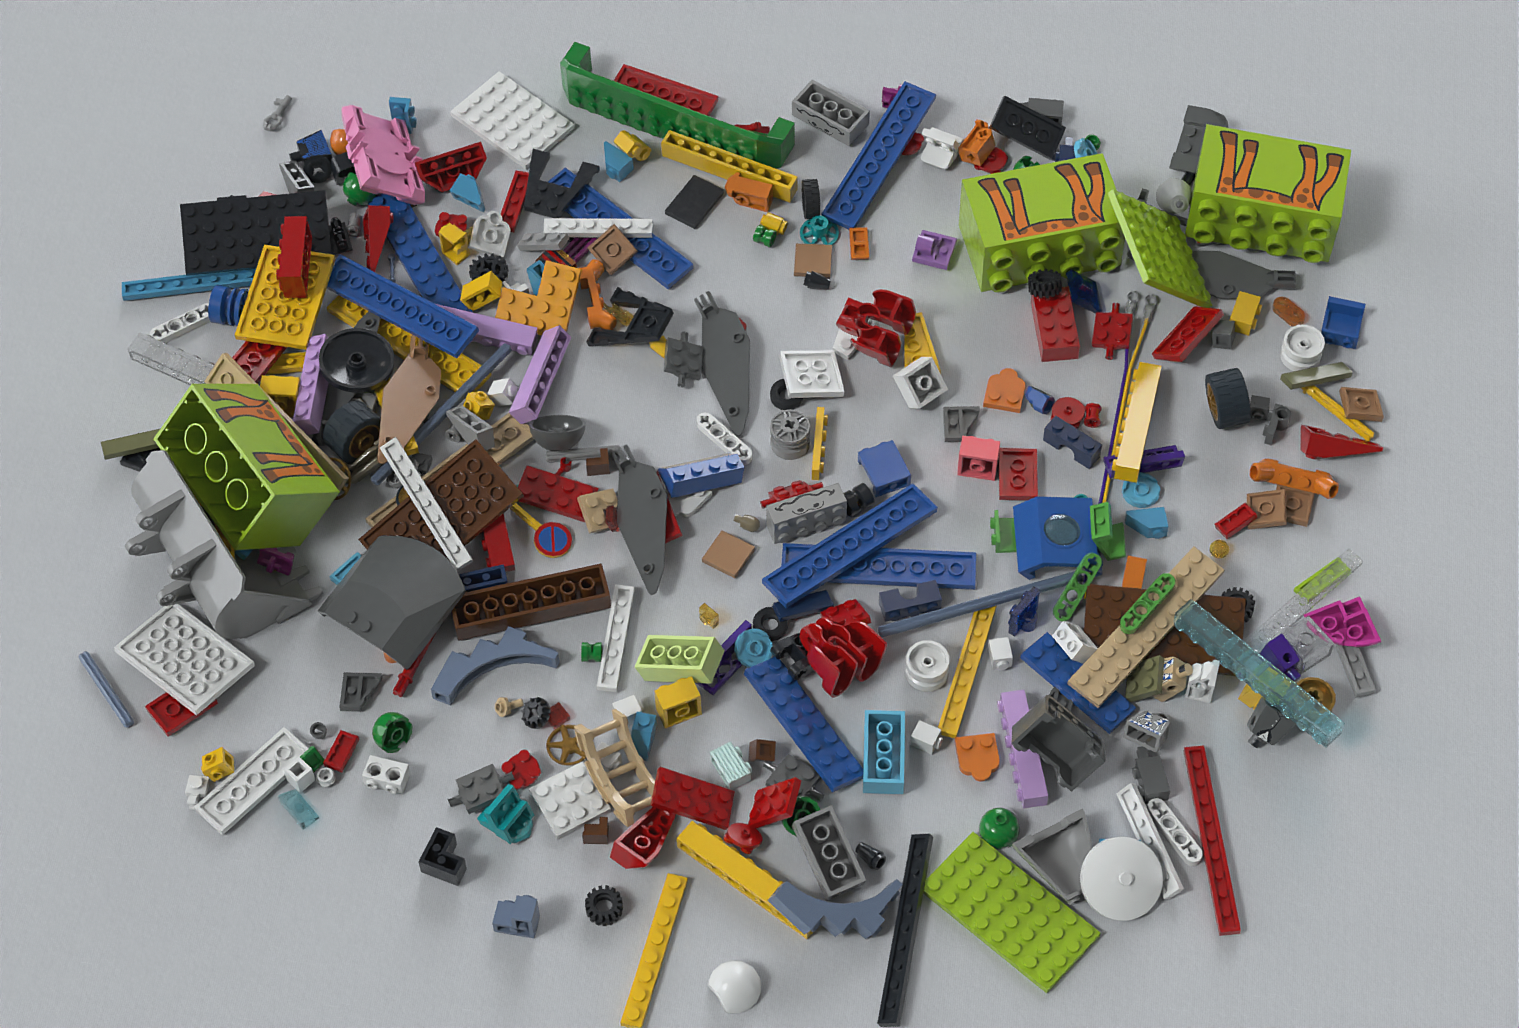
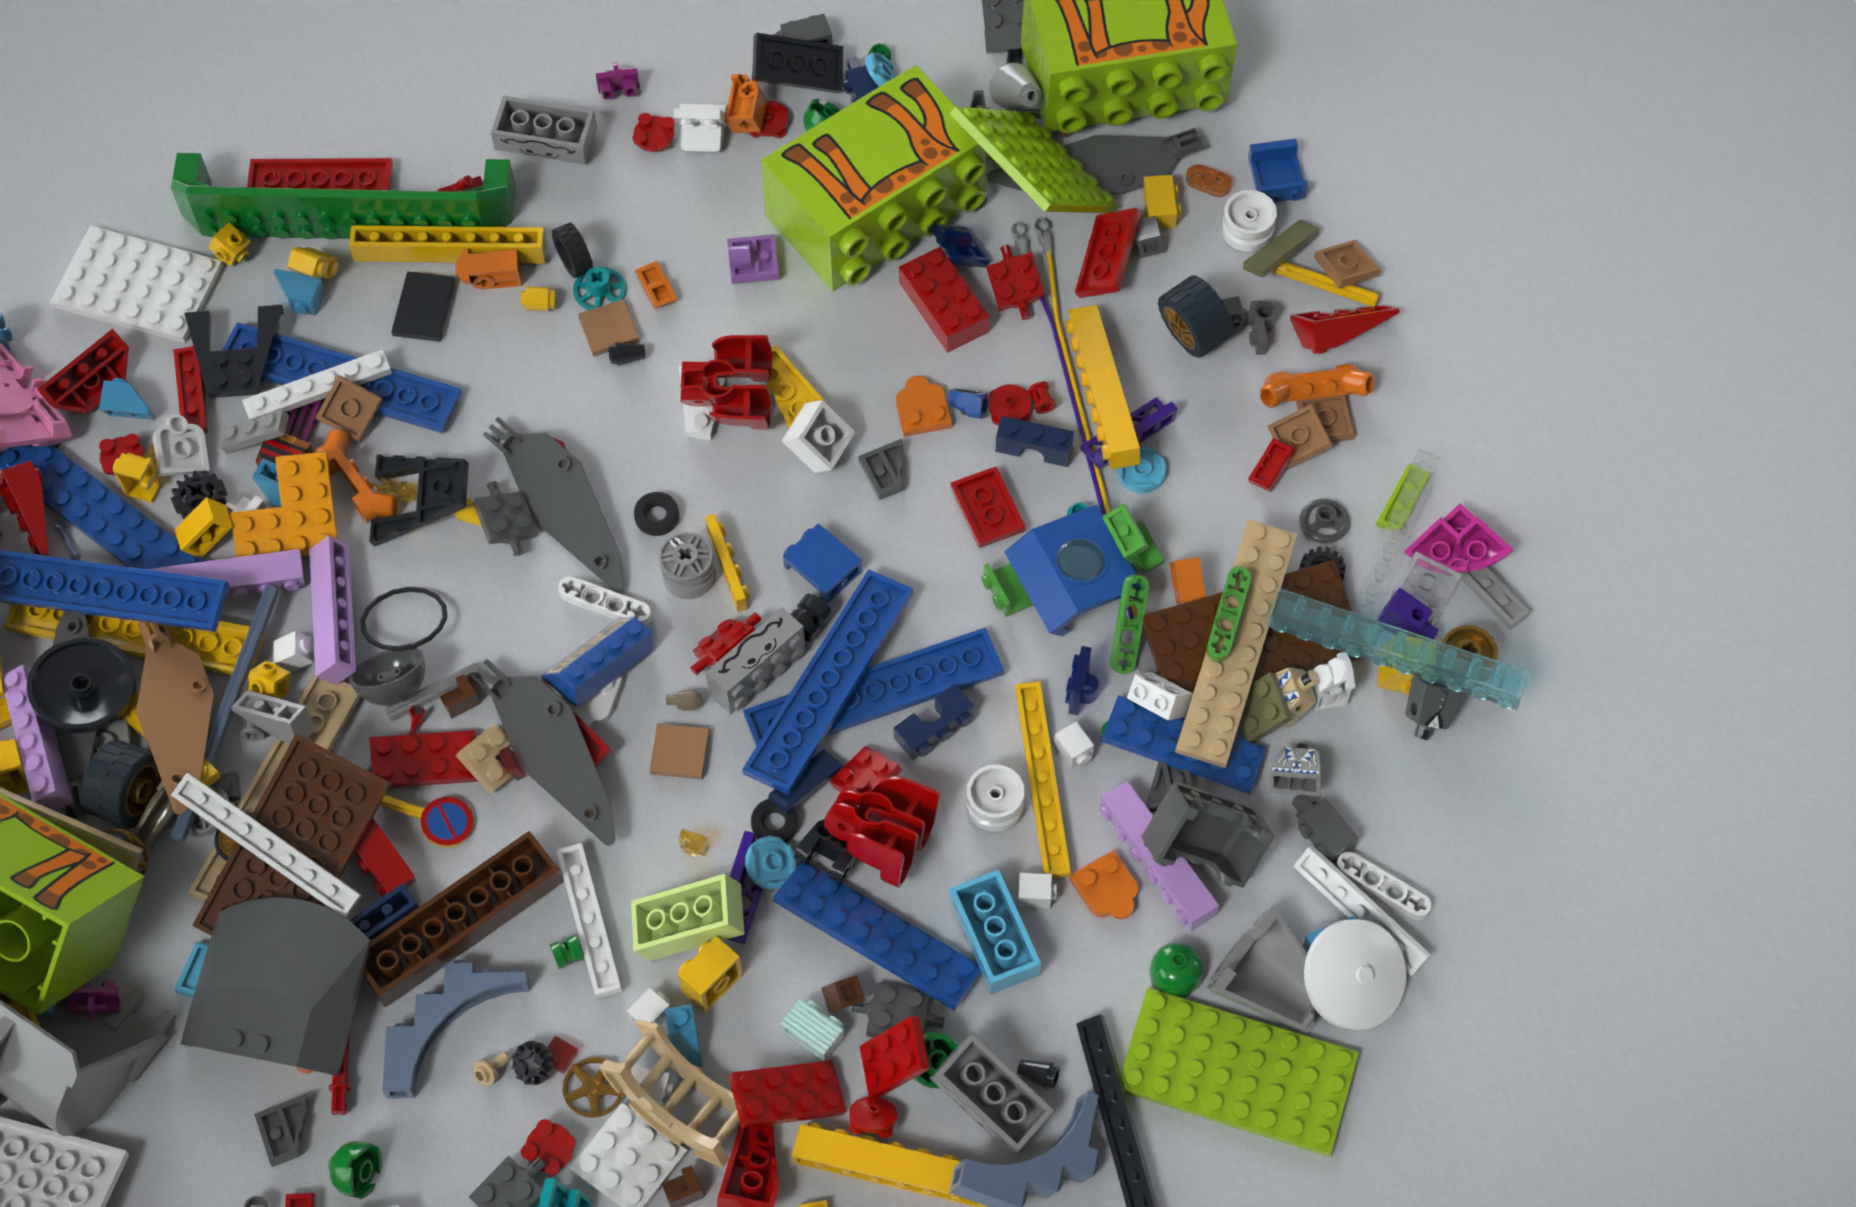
camera: 25 degrees left, 5 degrees up
(583, 115) = (230, 245): none -> yellow brick
(587, 416) = (408, 646): none -> black piece
(764, 236) = (534, 318): green wheel -> none
(811, 374) = (677, 476): white plate -> none
(878, 156) = (630, 164): blue plate -> none
(973, 605) = (1016, 696): sand blue axle -> none
(978, 458) = (933, 505): coral brick -> none
(1044, 283) = (913, 253): black tyre -> none
(1148, 522) = (1171, 507): dark azure slope -> none
(1211, 841) = (1432, 879): red plate -> none
(1219, 549) = (1268, 507): clear yellow plate -> none
(1257, 564) = (1327, 509): none -> dark grey piece

